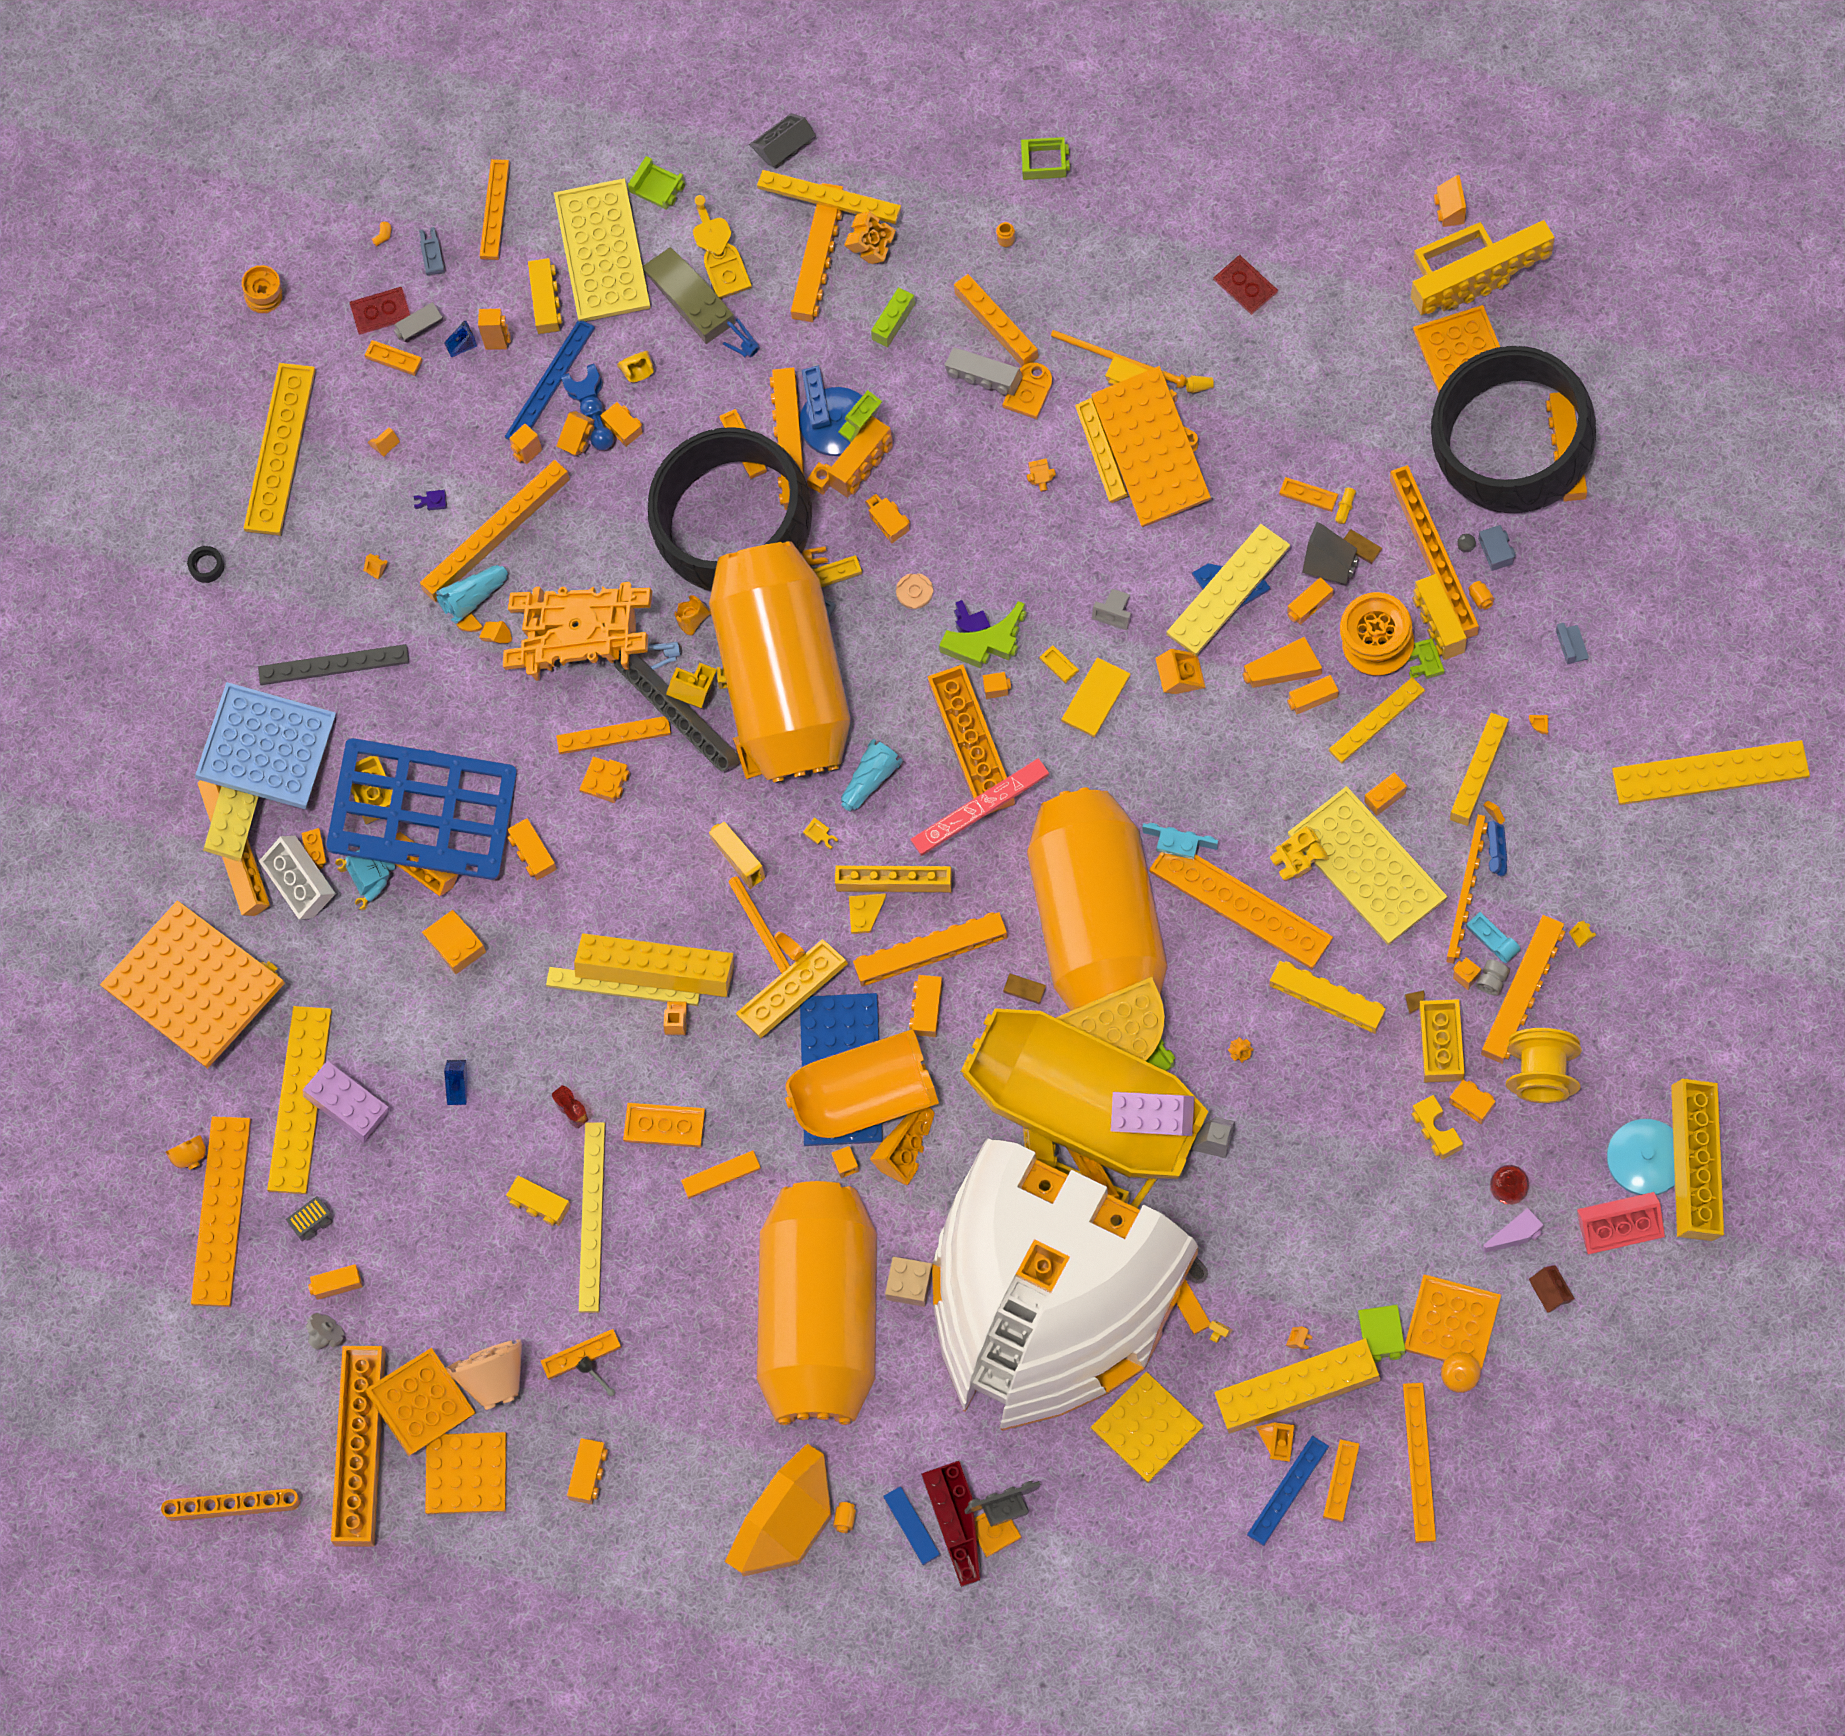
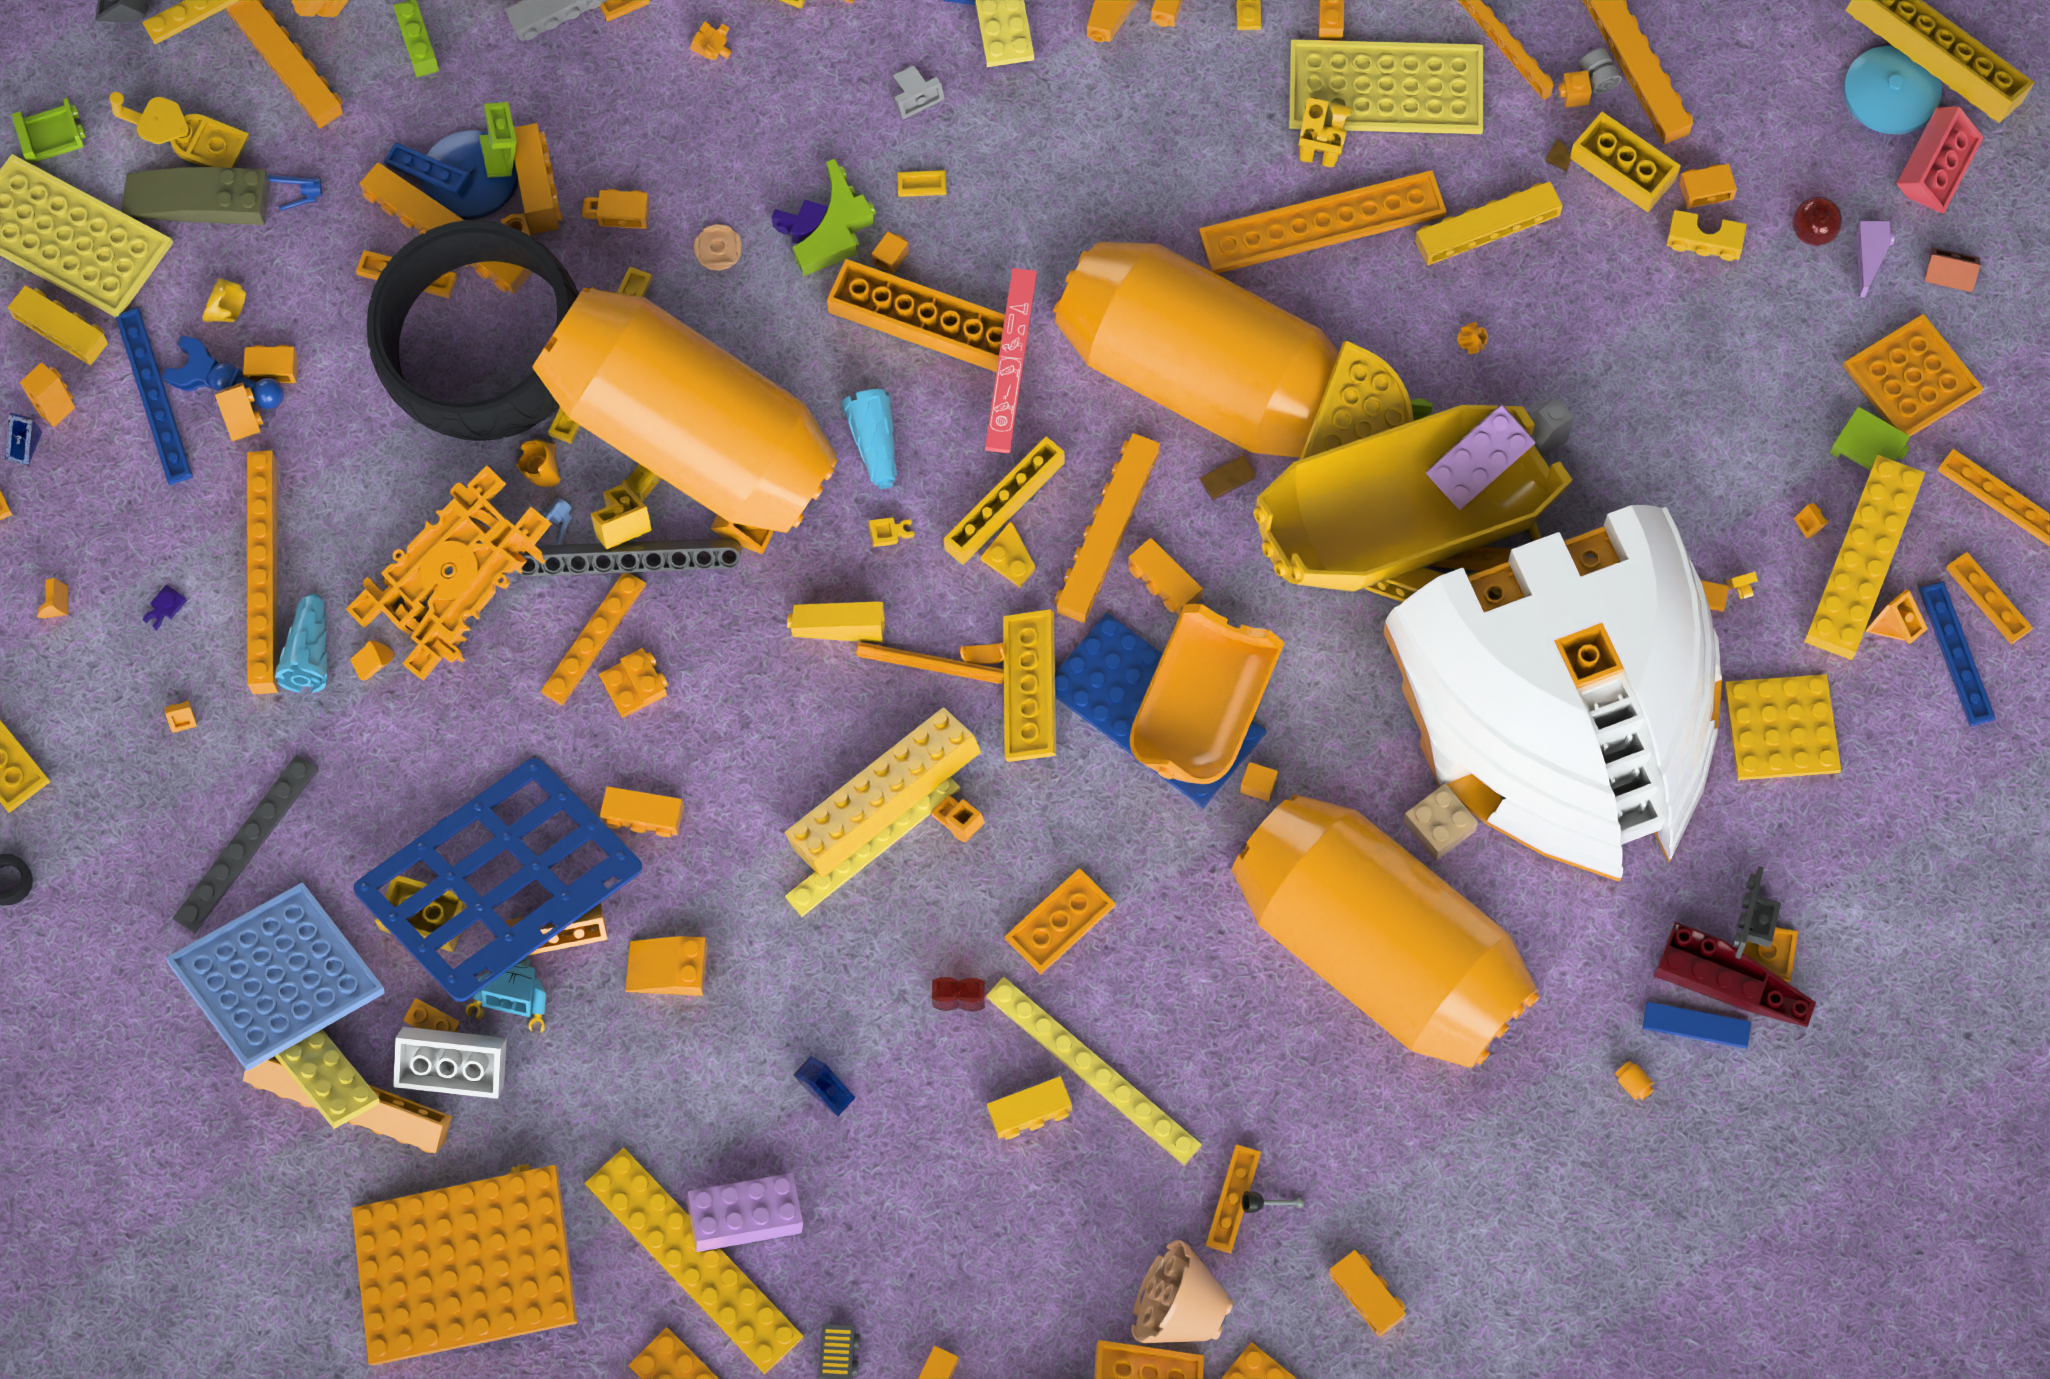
camera: 55 degrees left, 0 degrees up
(469, 624) = (337, 677): light orange tile -> none
(525, 444) = (201, 467): light orange brick -> none
(720, 1174) = (1161, 910): light orange tile -> none
(785, 1517) = (1598, 1132): light orange panel -> none
(899, 1150) = (1290, 721): light orange wedge -> none
(1096, 697) = (988, 179): yellow tile -> none
(1178, 843) = (1210, 224): medium azure bracket -> none
(1179, 671) = (1035, 87): light orange slope -> none
(1460, 1372) = (1972, 408): light orange cylinder -> none
(1493, 938) = (1561, 41): medium azure plate -> none
(1543, 1064) = (1737, 91): yellow wheel -> none

